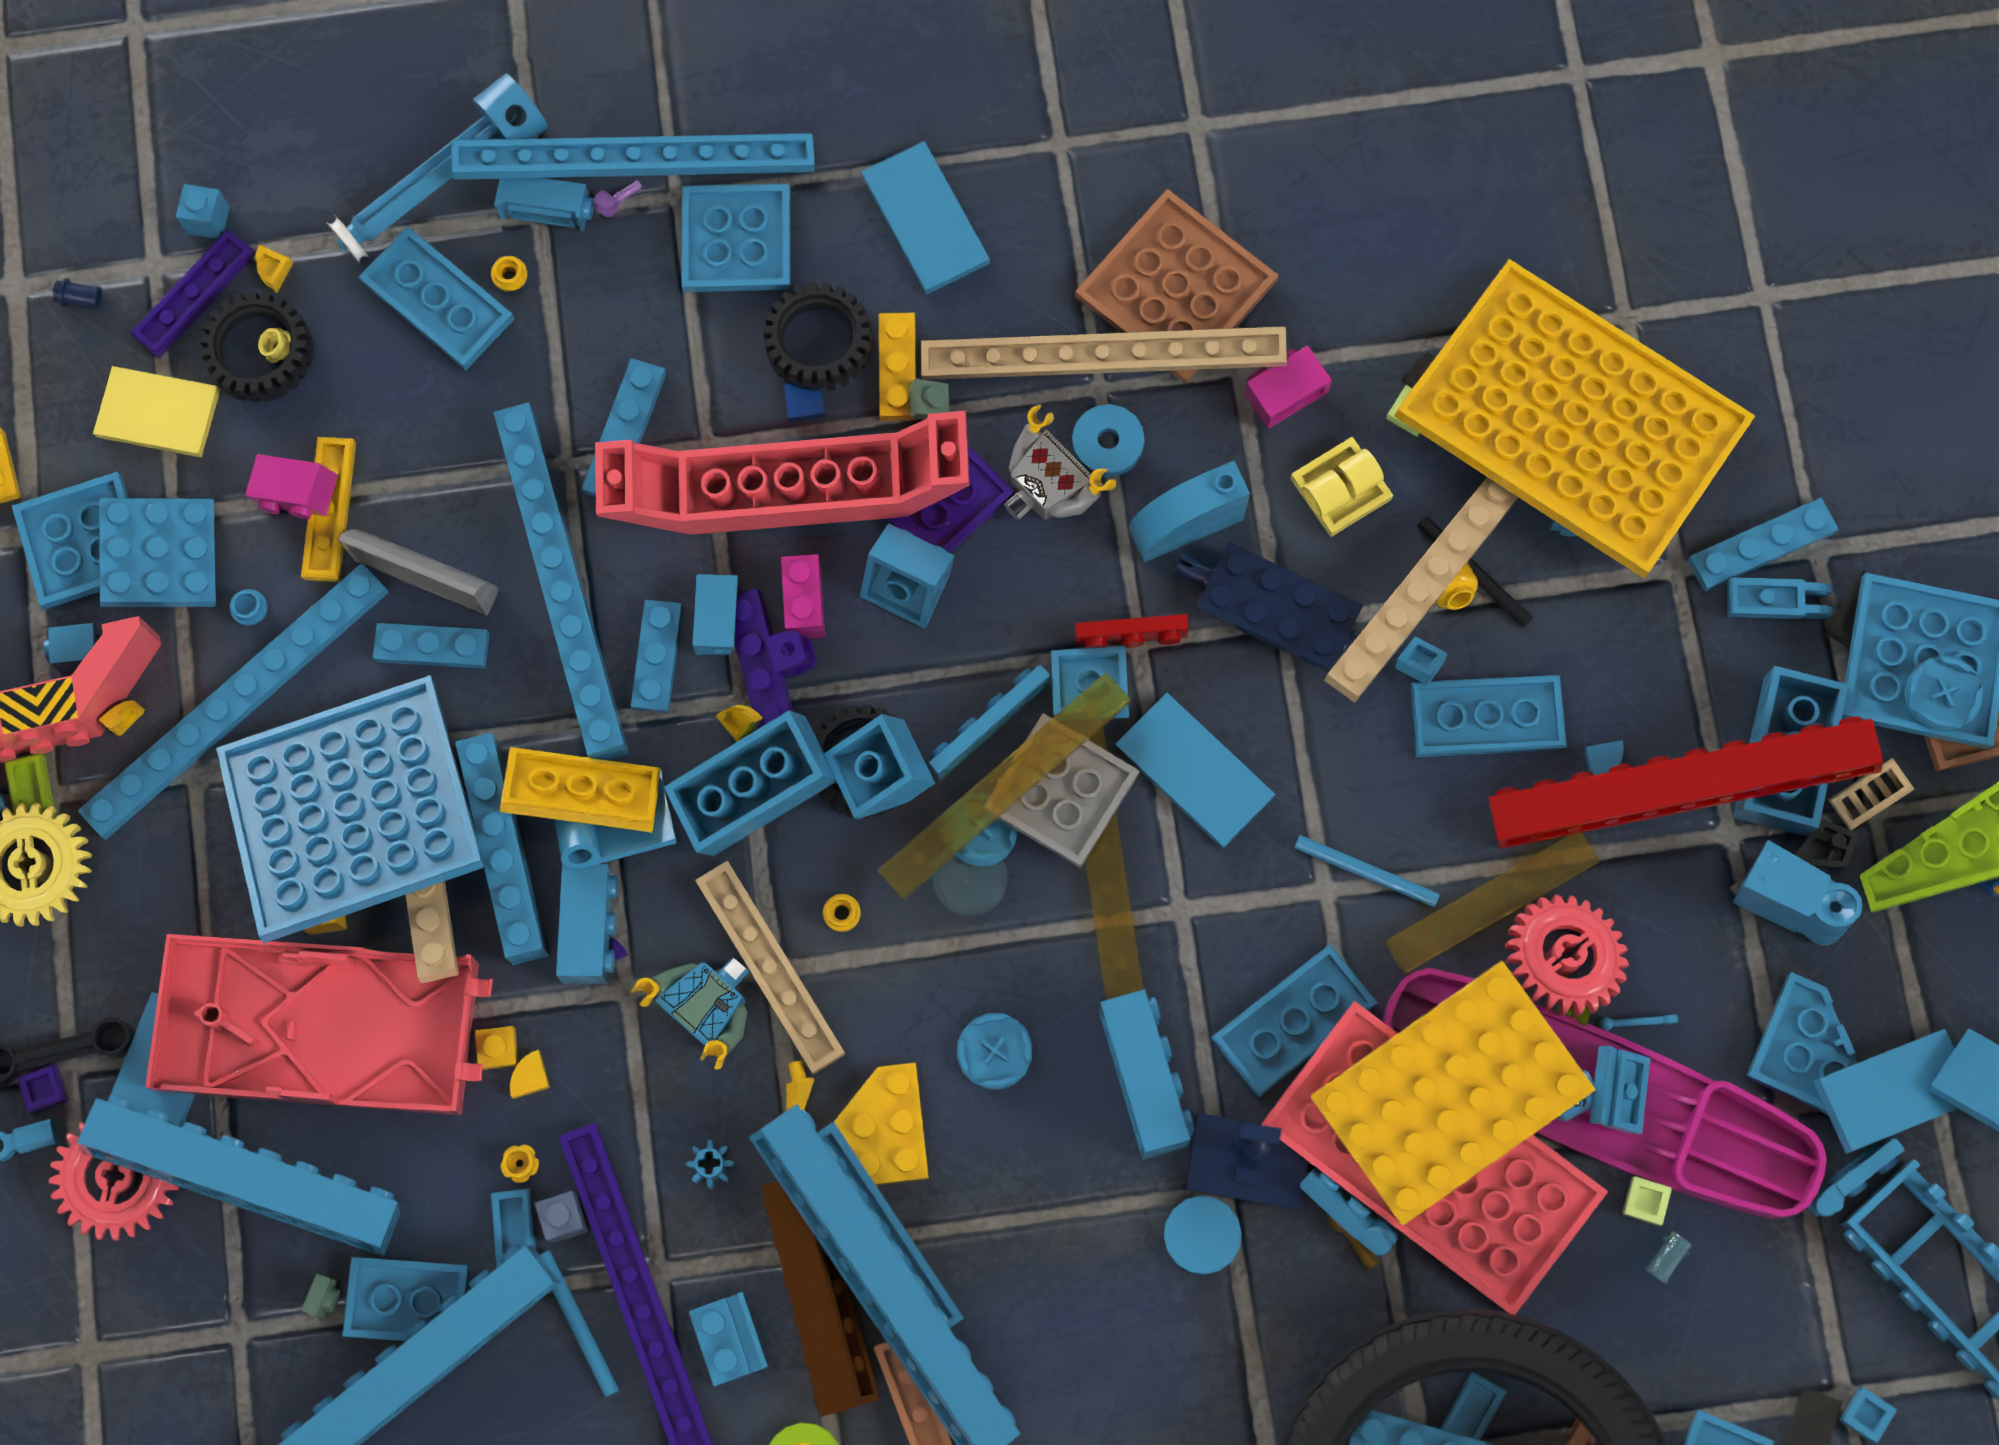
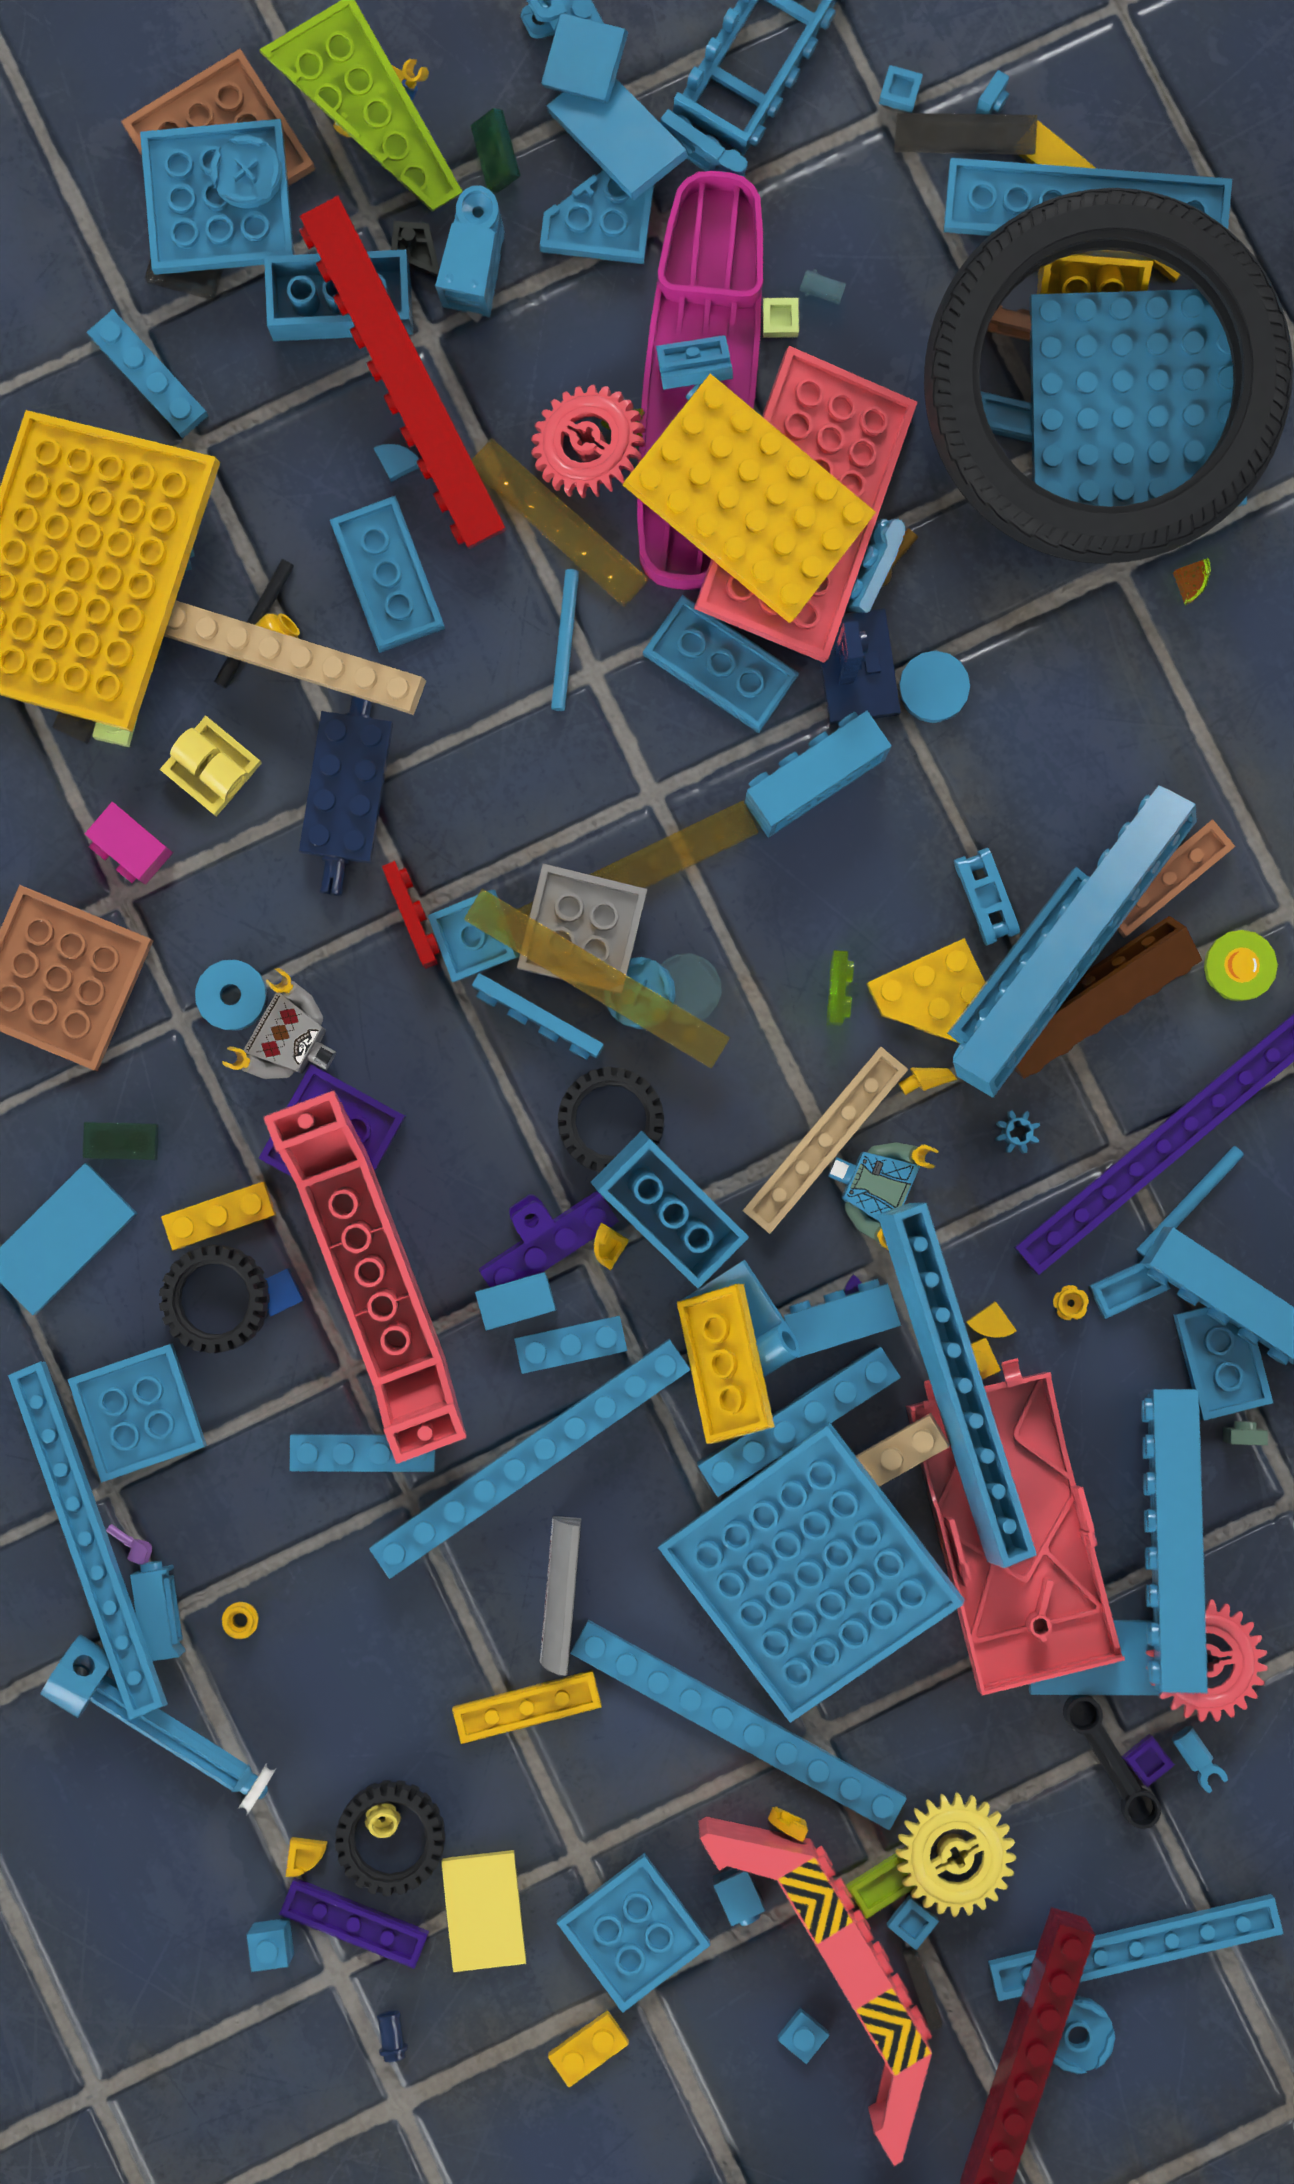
camera: 110 degrees left, 10 degrees up
(156, 552) = (624, 1852): dark azure plate -> none
(248, 607) = (646, 1746): dark azure plate -> none
(291, 486) = (519, 1748): dark pink brick -> none
(431, 645) = (627, 1559): dark azure plate -> none
(436, 298) = (286, 1681): dark azure plate -> none
(475, 1003) = (957, 1384): none -> dark azure brick
(562, 1217) = (1107, 1246): sand blue brick -> none
(728, 1339) = (1159, 1066): dark azure plate -> none
(803, 595) = (473, 1225): dark pink brick -> none
(838, 901) = (754, 1081): yellow plate -> none
(879, 767) = (619, 1096): dark azure slope -> none
(903, 1024) = (840, 972): none -> clear neon green plate
(906, 575) = (424, 1135): dark azure slope -> none
(928, 398) = (244, 1173): sand green plate -> none
(964, 1215) = (987, 896): none -> dark azure plate
(994, 1051) = (833, 917): dark azure tile -> none
(999, 297) = (120, 1141): none -> clear green plate
(1104, 353) = (149, 1021): tan plate -> none
(1190, 512) = (283, 892): dark azure brick -> none
(1195, 770) = (521, 819): dark azure tile -> none
(1421, 660) = (357, 642): dark azure plate -> none
(1607, 1023) = (634, 394): dark azure hinge -> none
(1776, 598) = (197, 349): dark azure hinge -> none
(1897, 777) = (362, 211): tan slope -> none
(1908, 959) = (495, 150): none -> clear green plate

